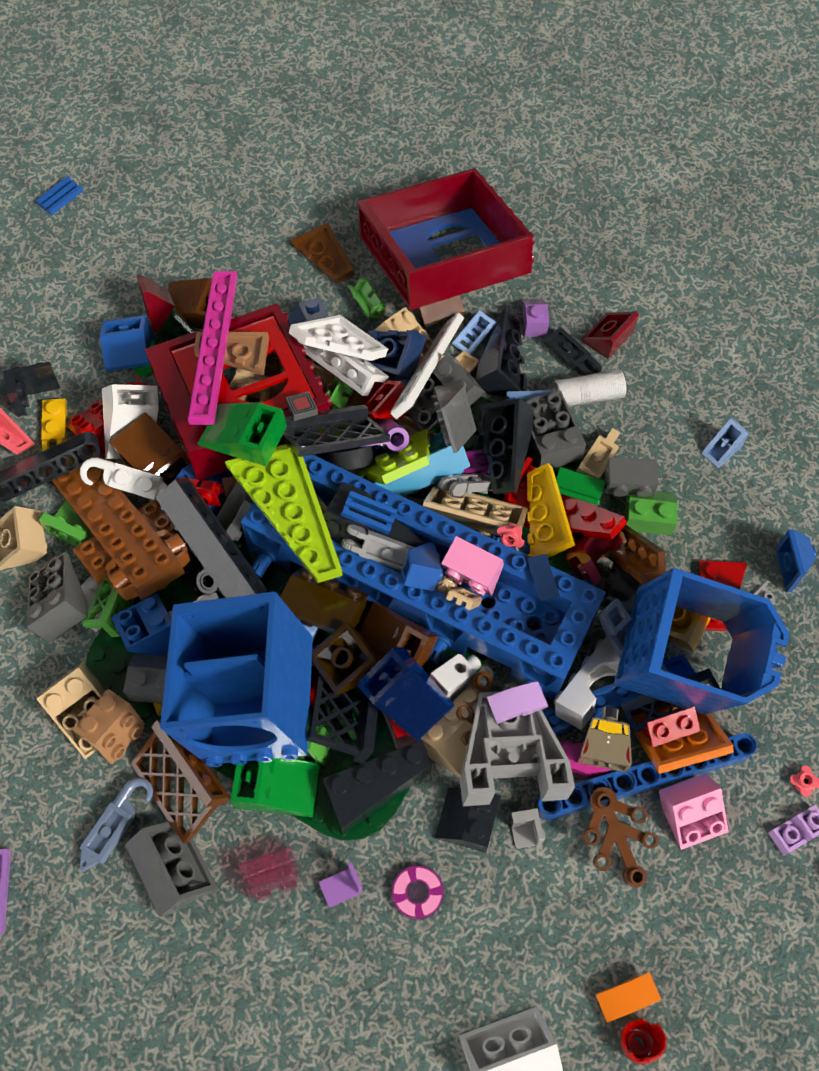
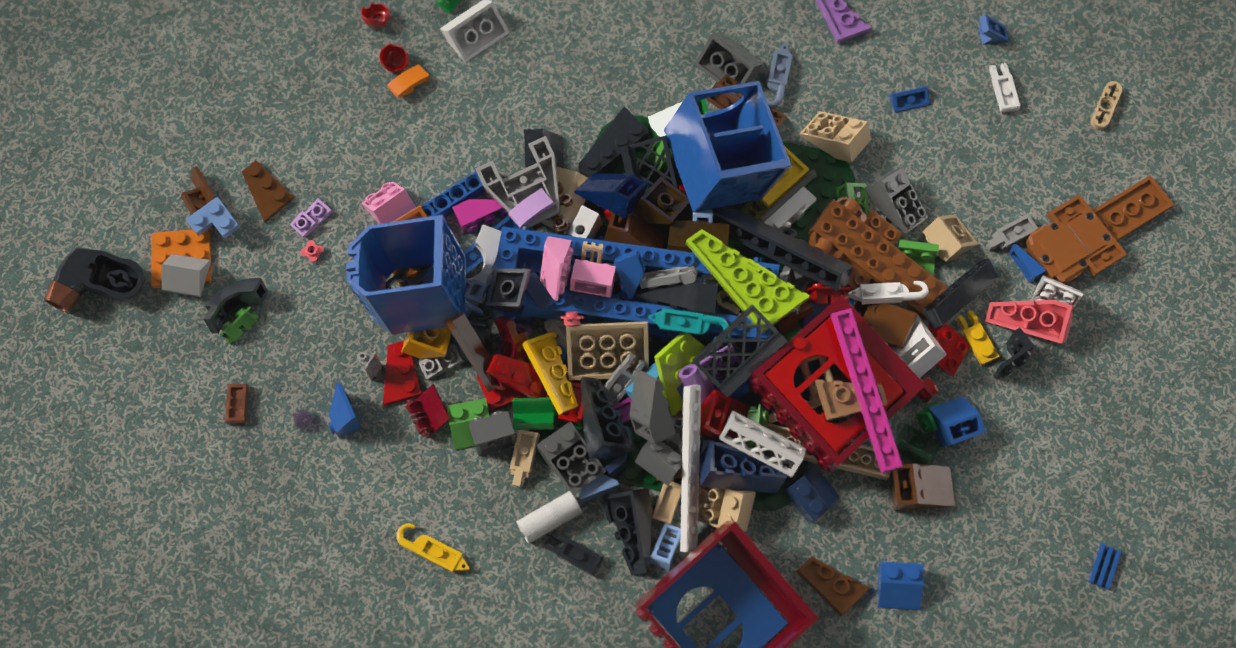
camera: 165 degrees right, 5 degrees up
(110, 726) = (810, 122): medium nougat bracket -> none
(145, 627) = (816, 188): blue slope -> none
(146, 678) = (802, 162): dark grey slope -> none
(156, 301) = (953, 464): dark red slope -> none
(245, 431) = (804, 313): green slope -> none
(259, 235) = (900, 585): none -> blue slope
(270, 873) = (662, 78): clear pink brick -> none
(301, 406) = (770, 356): dark grey tile -> none
(338, 336) = (772, 449): white plate -> none
(341, 886) = (613, 87): medium lavender bracket -> none
(369, 503) = (681, 286): blue tile -> none
(371, 306) = (775, 543): bright green hinge -> none
(378, 480) = (686, 321): none -> teal plate
(417, 892) = (562, 100): tile -> none
(513, 592) = (556, 265): none -> bright pink slope
(526, 828) = (502, 159): light grey panel -> none
(535, 317) = (619, 581): medium lavender slope -> none
(579, 585) = (507, 289): none -> black slope
(607, 743) = (461, 216): dark tan torso -> none
(611, 332) = (546, 586): dark red slope -> none
(616, 833) = (451, 180): reddish brown plant -> none
(699, 531) = (428, 412): none -> dark red hinge
(718, 397) = (433, 550): none -> yellow plate
(726, 443) = (420, 504): medium blue slope -> none

